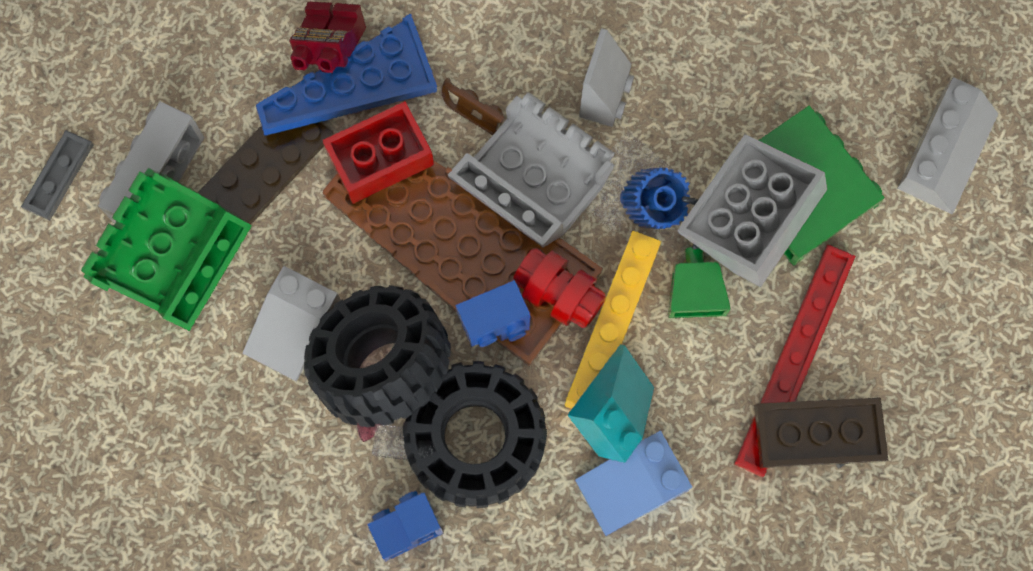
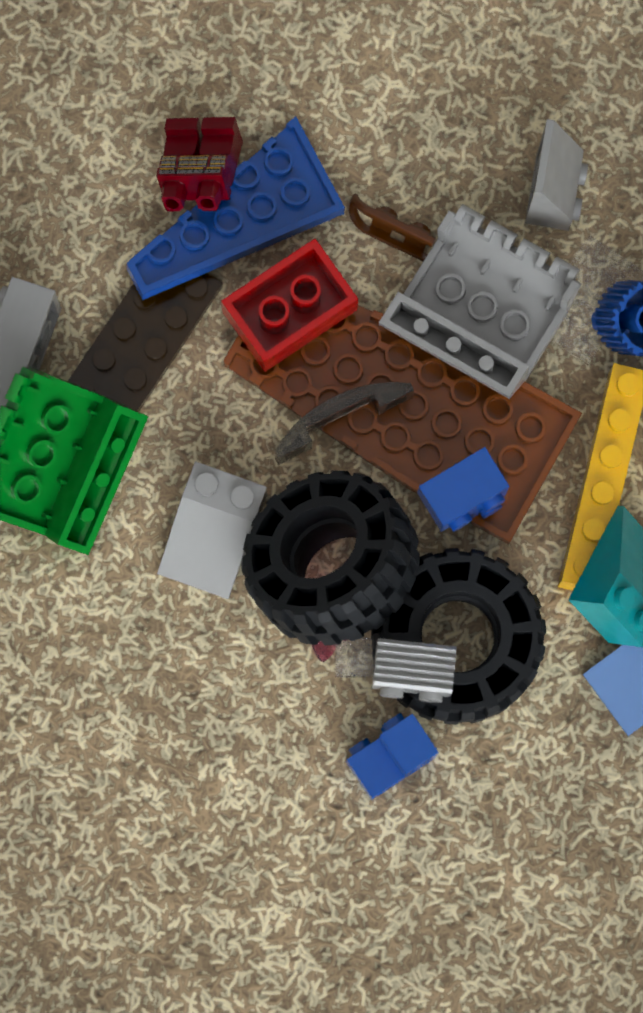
camera: 10 degrees left, 5 degrees up
(428, 455) = (414, 669): none -> light grey brick
(444, 232) = (383, 395): none -> clear smoke slope
(547, 280) = (552, 454): red piece -> none

